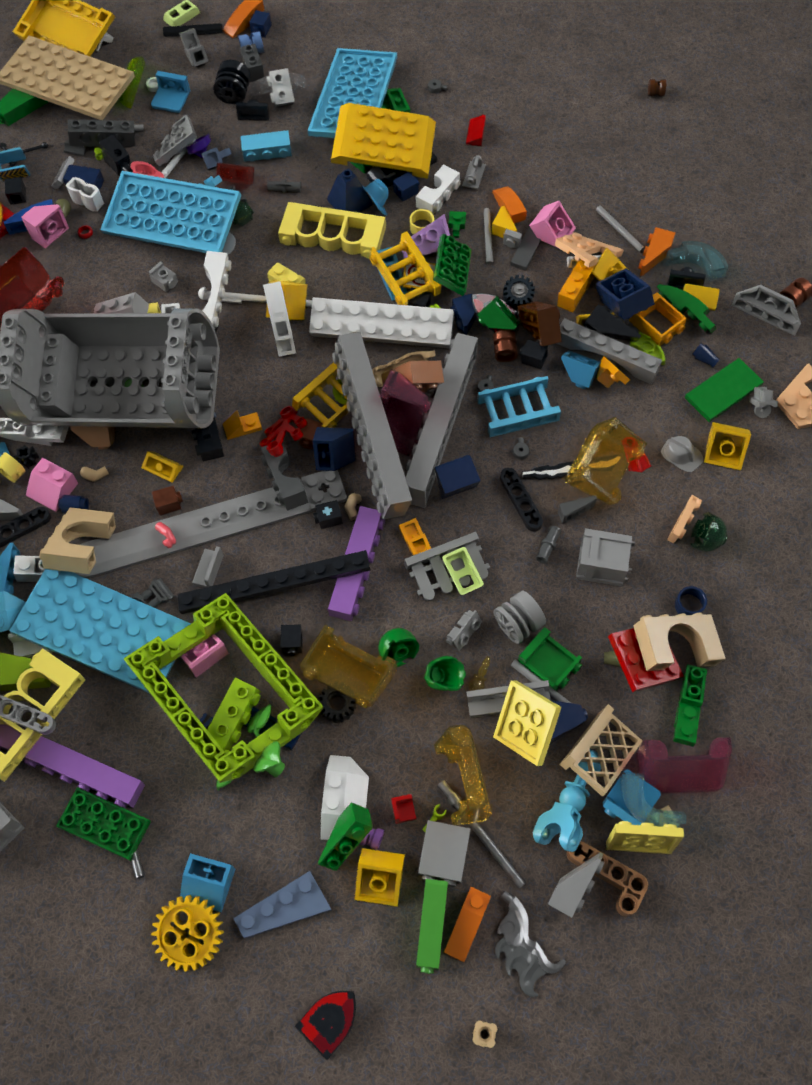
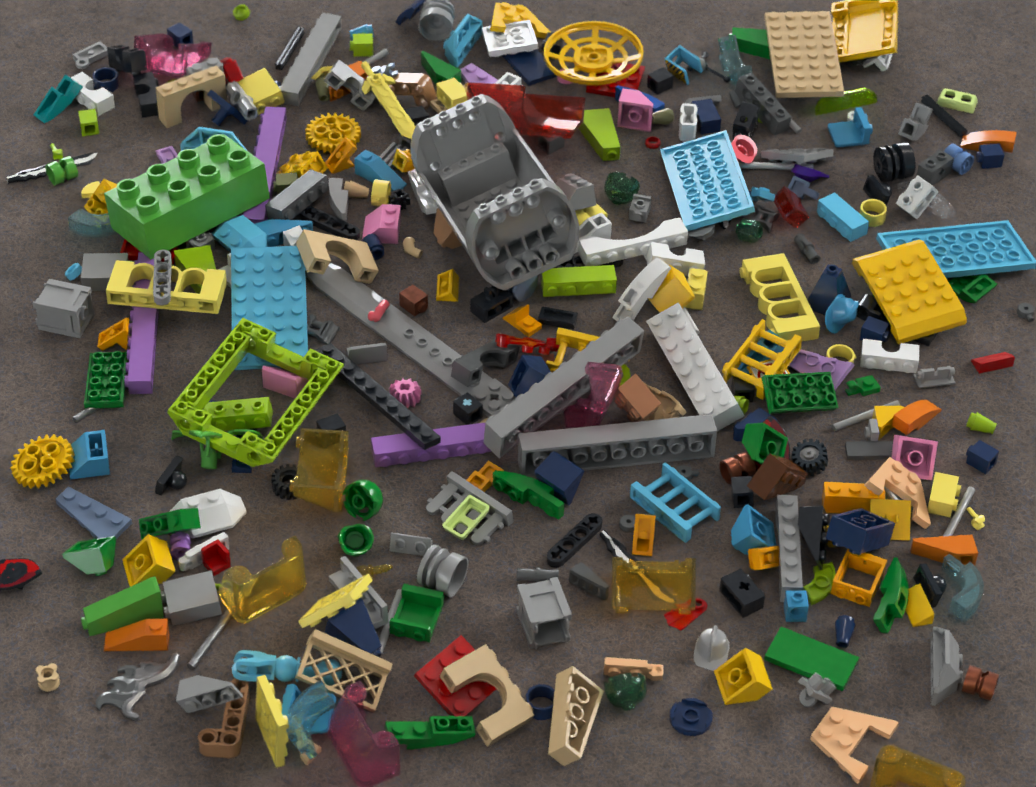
camera: 60 degrees right, 20 degrees down
(36, 133) = (730, 59): none -> clear light blue arch
(50, 791) = (115, 334): none -> light orange slope
(58, 261) = (601, 133): none -> lime slope
(133, 279) = (620, 188): none -> clear green cylinder
(232, 350) = (579, 281): none -> lime brick
(241, 288) = (691, 258): none -> white arch
(256, 396) = (558, 317): none -> black plate
(272, 117) = (873, 205): none -> light yellow piece
(275, 810) = (171, 477): none -> black tile
(287, 553) = (406, 392): none -> bright pink gear
(341, 929) = (92, 555): none -> green slope
(388, 820) = (193, 556): none -> white hinge
(447, 511) = (524, 489): none -> green slope
(537, 169) = (980, 423): none -> lime cone
(545, 445) = (643, 534): none -> light orange slope
(573, 184) = (982, 456): none -> dark blue brick
(599, 226) = (943, 494): none -> light yellow brick
(634, 218) = (977, 521): none -> light yellow hand
(638, 404) = (742, 593): none -> black brick
(670, 374) = (796, 606): none -> dark azure brick
(725, 586) = (572, 715): none -> tan wedge
(745, 500) = (694, 722): none -> dark blue tile

